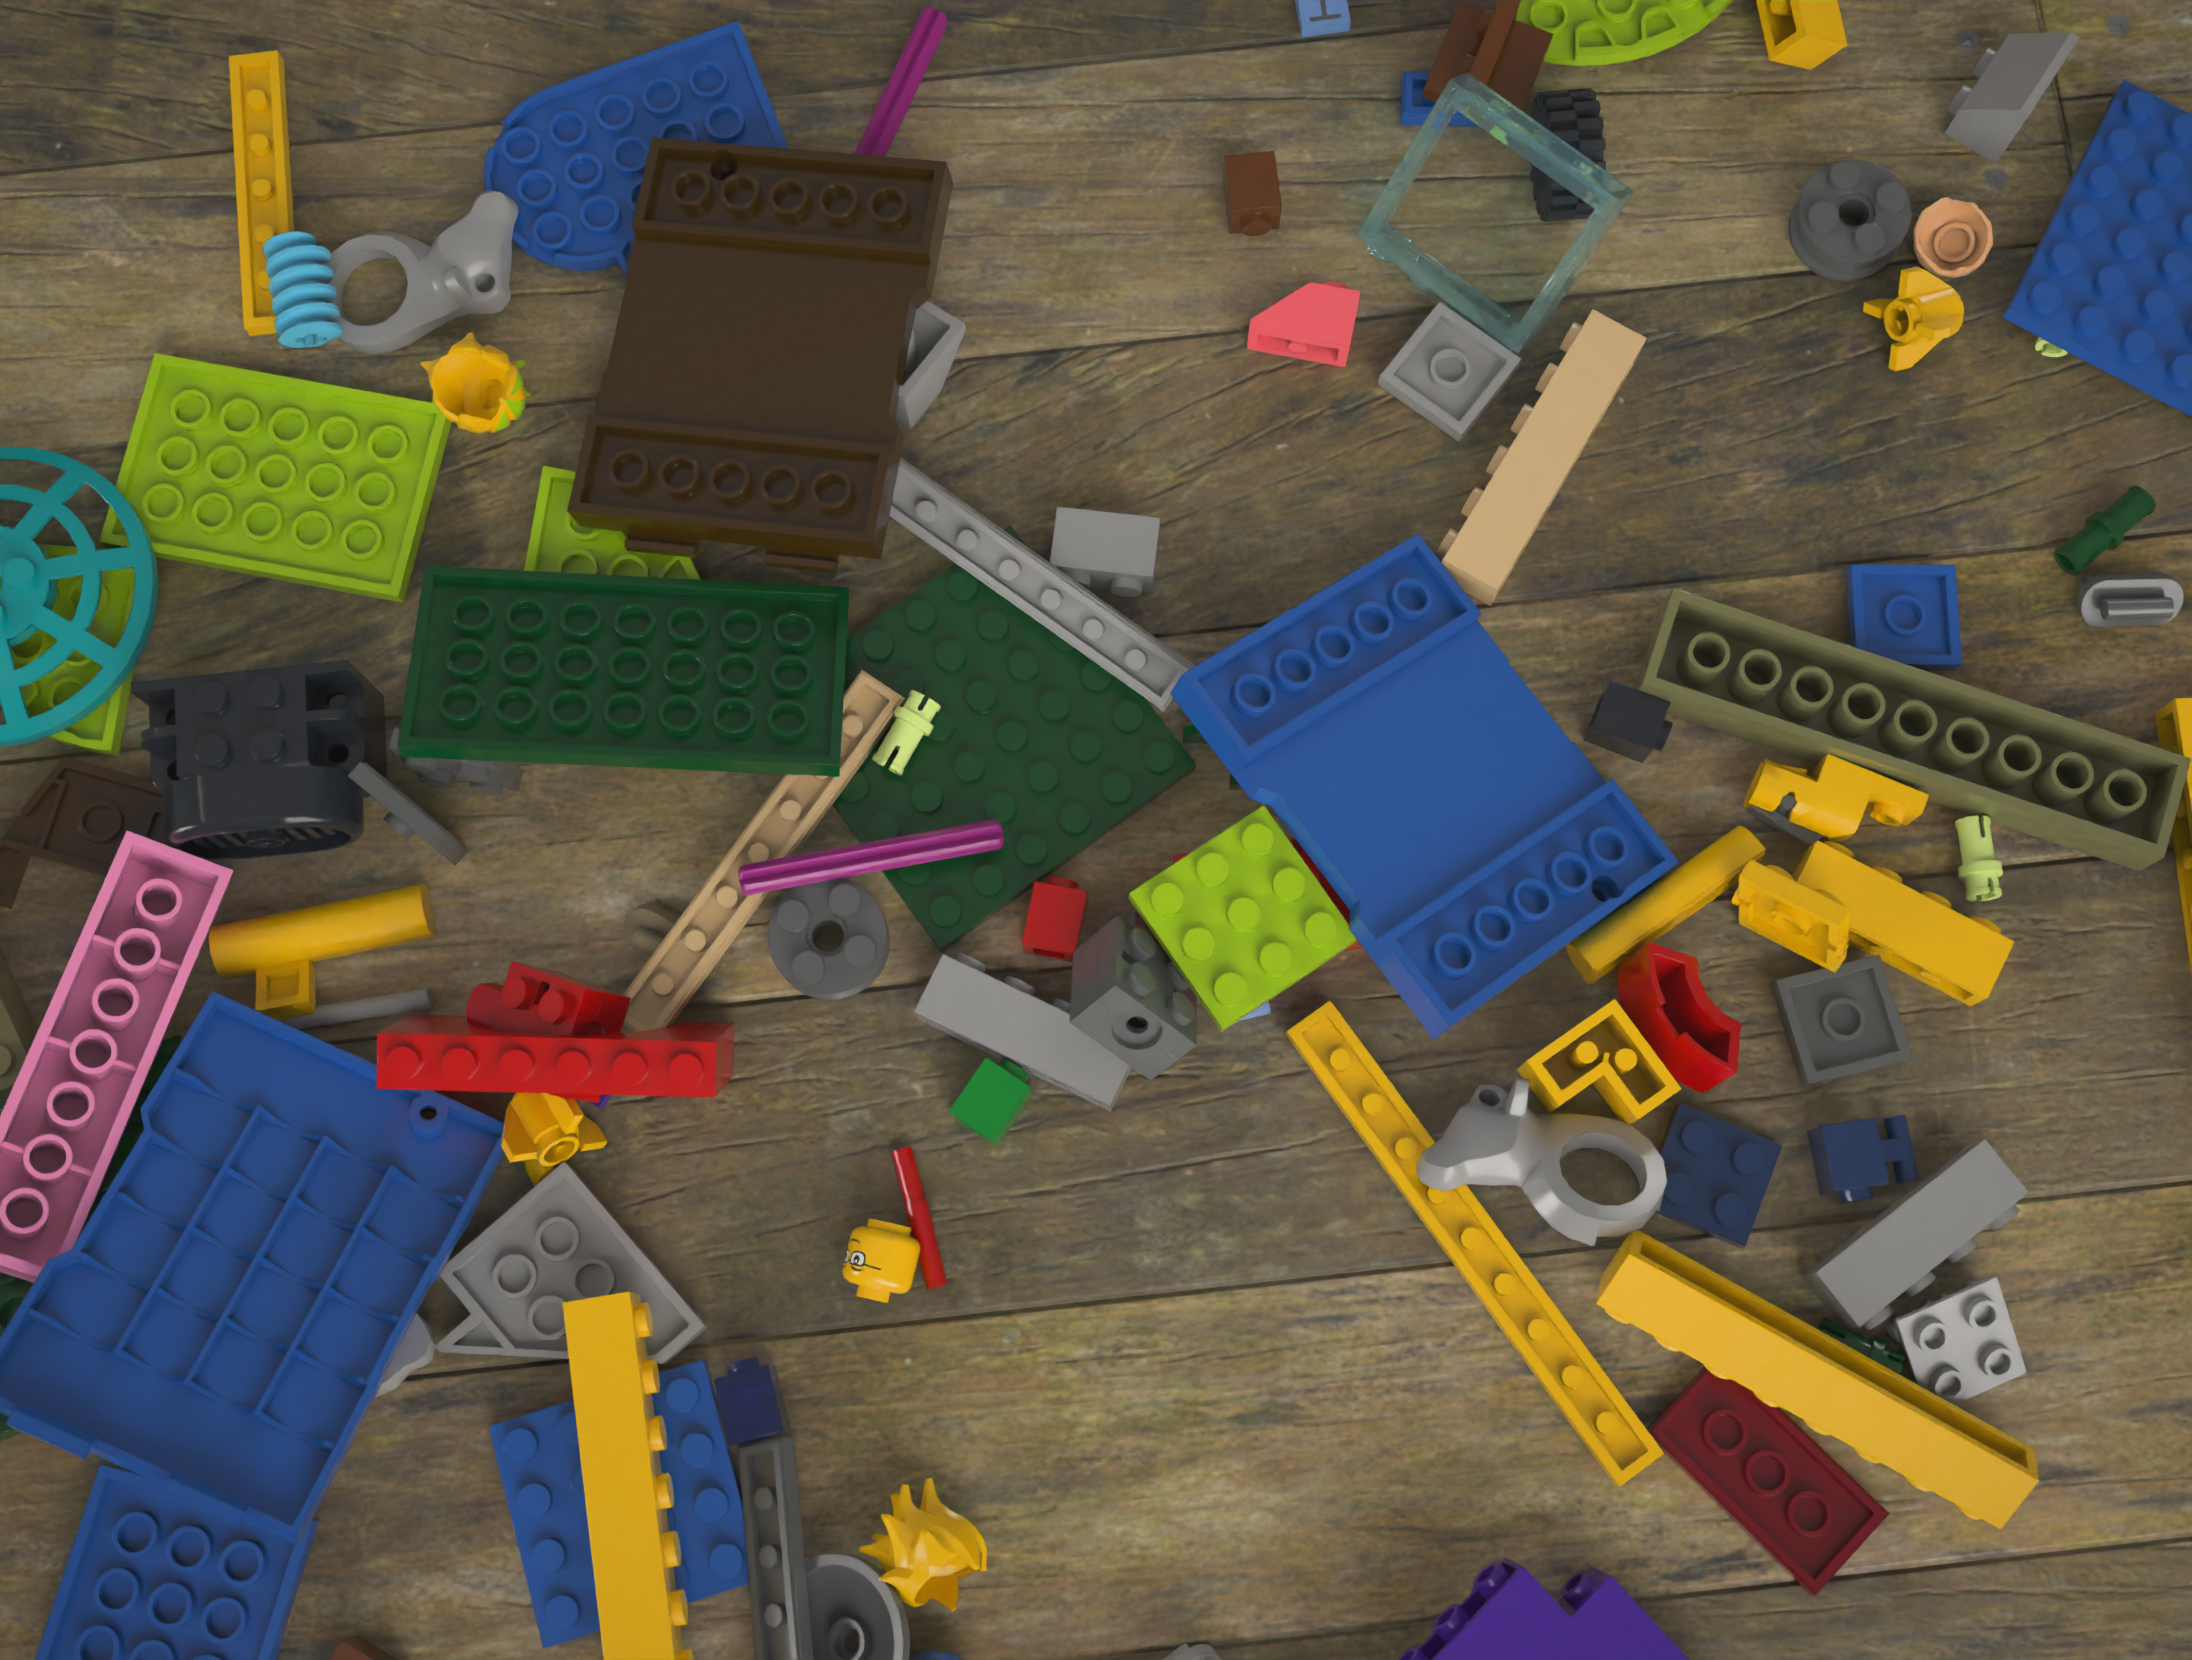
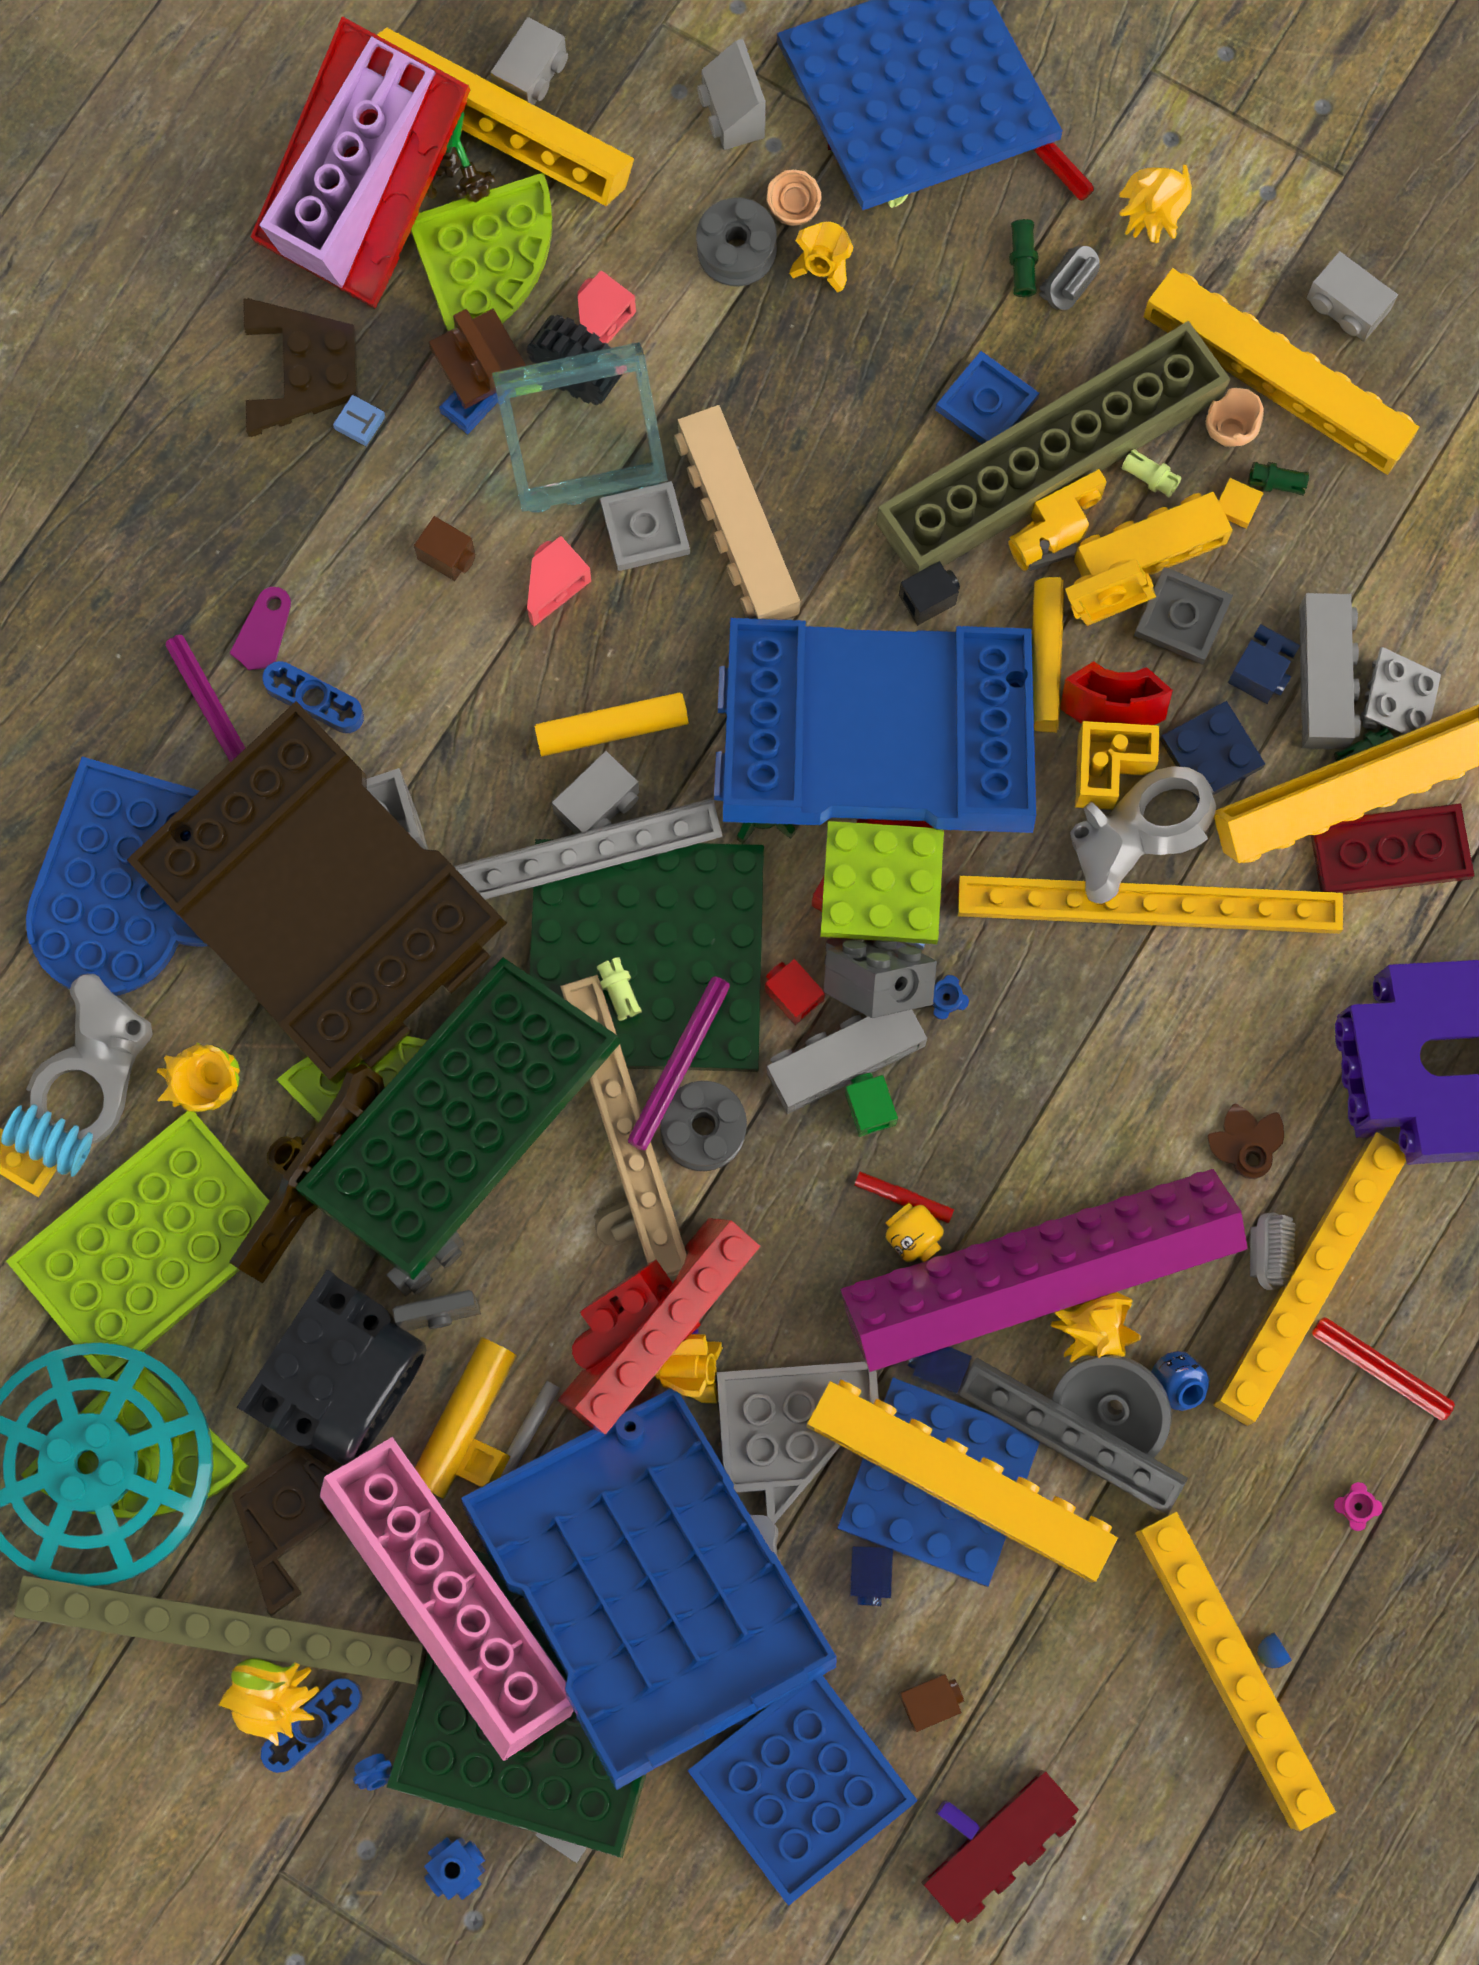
camera: 55 degrees left, 0 degrees up
(460, 1503) = (870, 1575): none -> clear blue brick
(461, 541) = (294, 1161): none -> dark brown piece
(945, 1440) = (1043, 1269): none -> magenta brick
(992, 172) = (294, 675): none -> blue beam
(1017, 90) = (262, 631): none -> magenta piece
(1188, 1106) = (957, 1000): none -> blue plate
(1199, 504) = (611, 724): none -> yellow brick
(1289, 1555) = (1247, 1136): none -> reddish brown plate
(1652, 145) = (604, 306): none -> coral slope
(2029, 983) = (1239, 502): none -> yellow tile
(2097, 1005) = (1277, 478): none -> dark green pin
(2125, 902) = (1235, 418): none -> light nougat hair

